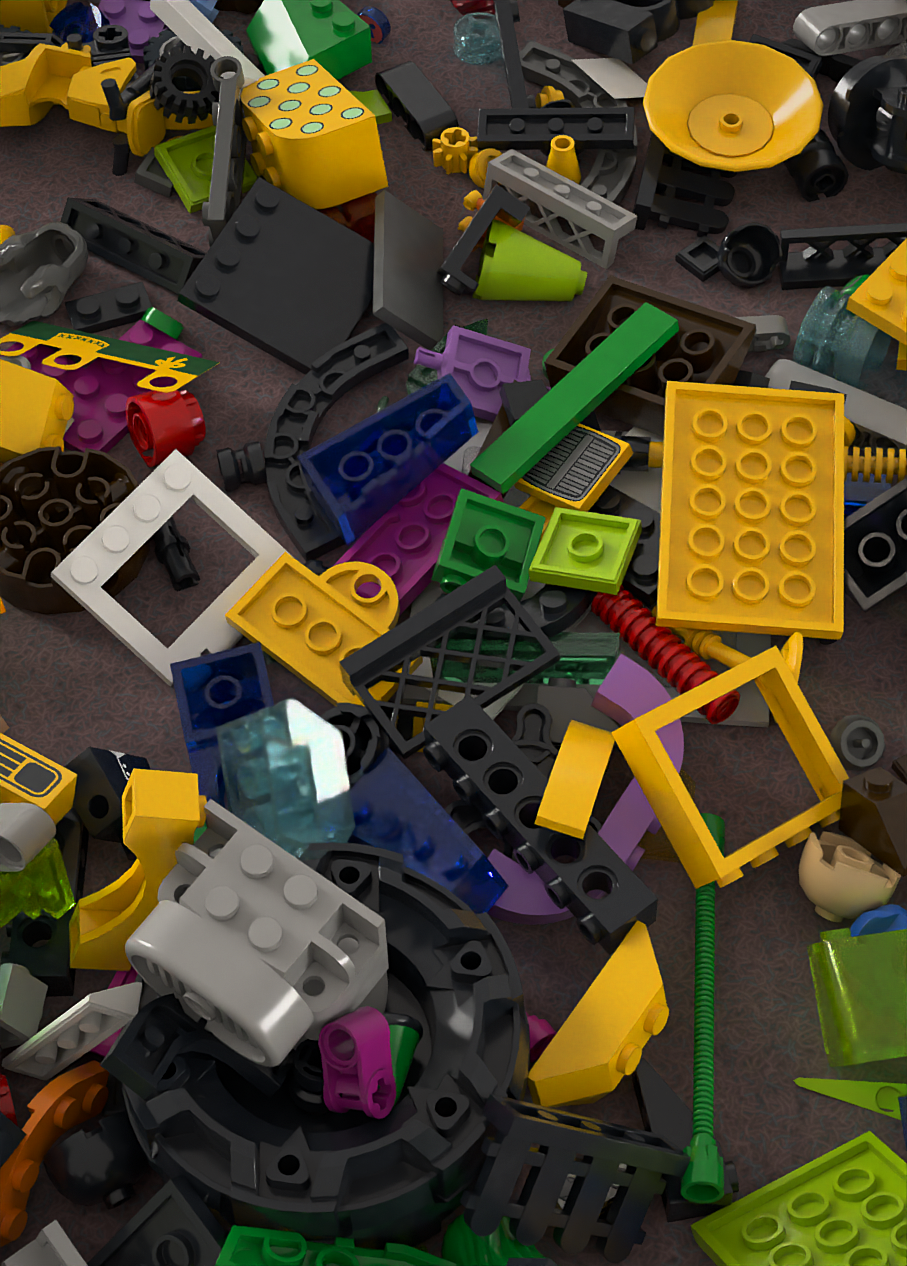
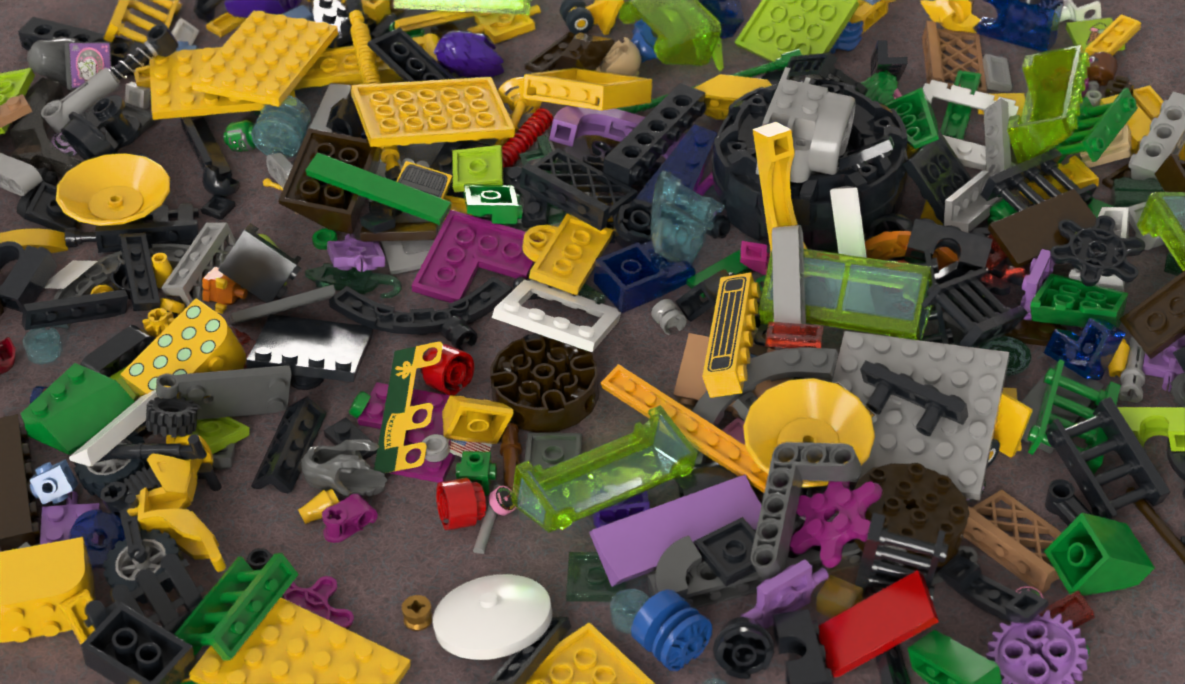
camera: 110 degrees left, 10 degrees down
(120, 737) = (668, 315): none -> light grey wheel
(387, 455) = (447, 251): clear blue wedge -> none
(575, 779) = (650, 106): yellow slope -> none

